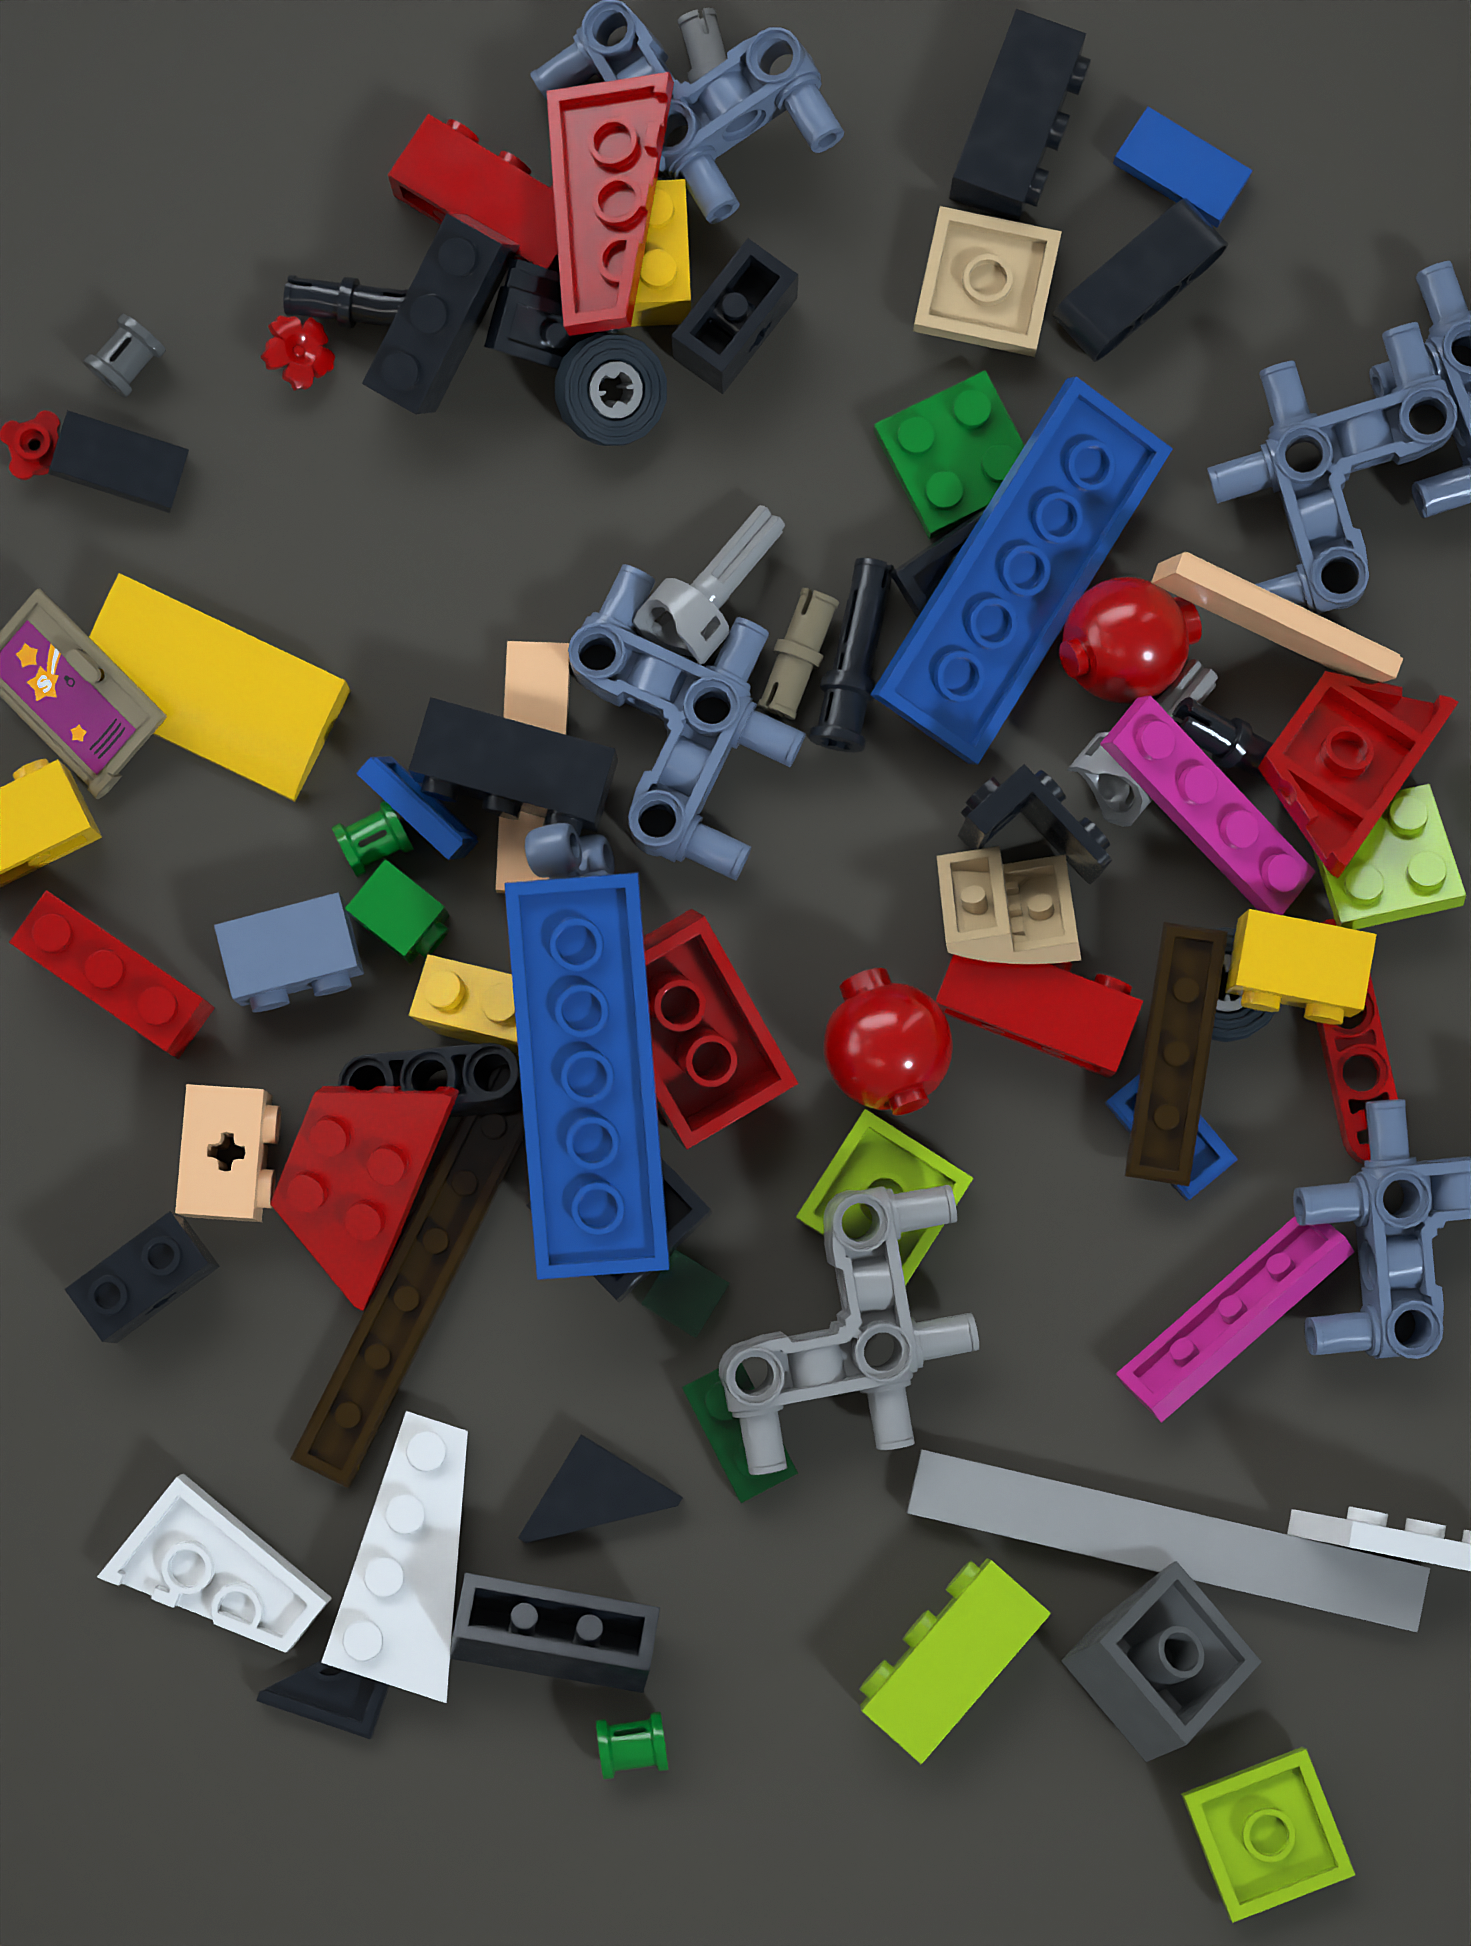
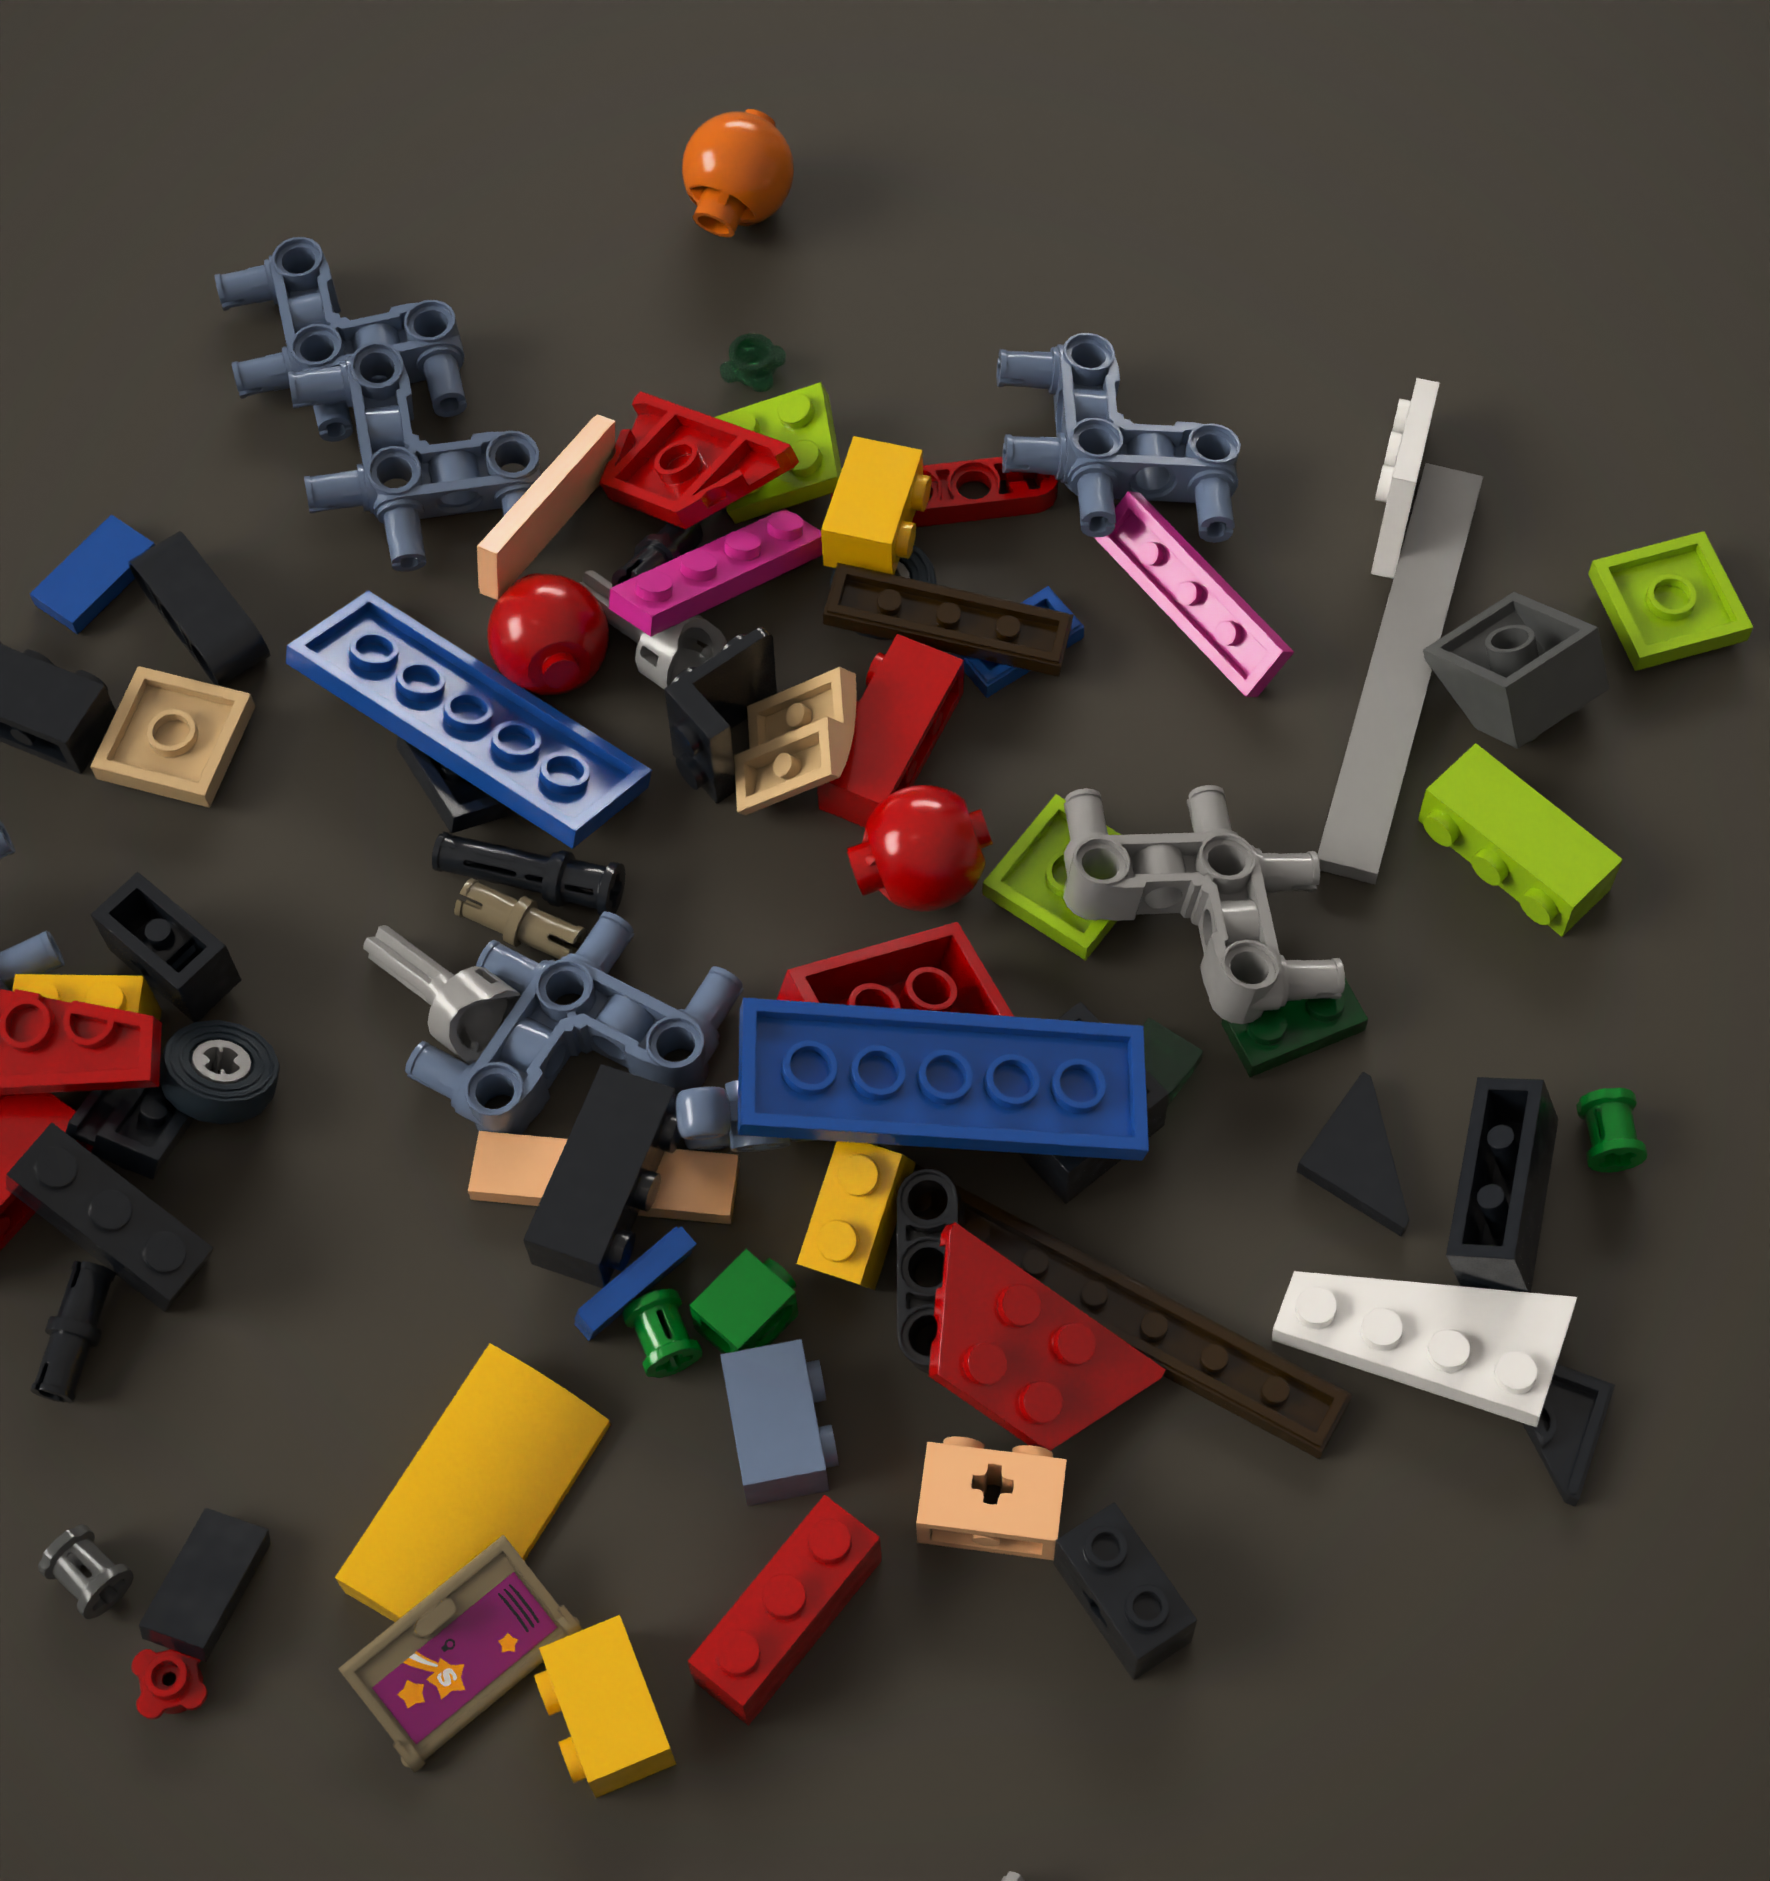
camera: 85 degrees left, 20 degrees down
(212, 1564) = (1436, 1536): white wing -> none
(299, 350) = (116, 1386): red plant -> none
(951, 451) = (339, 779): green plate -> none

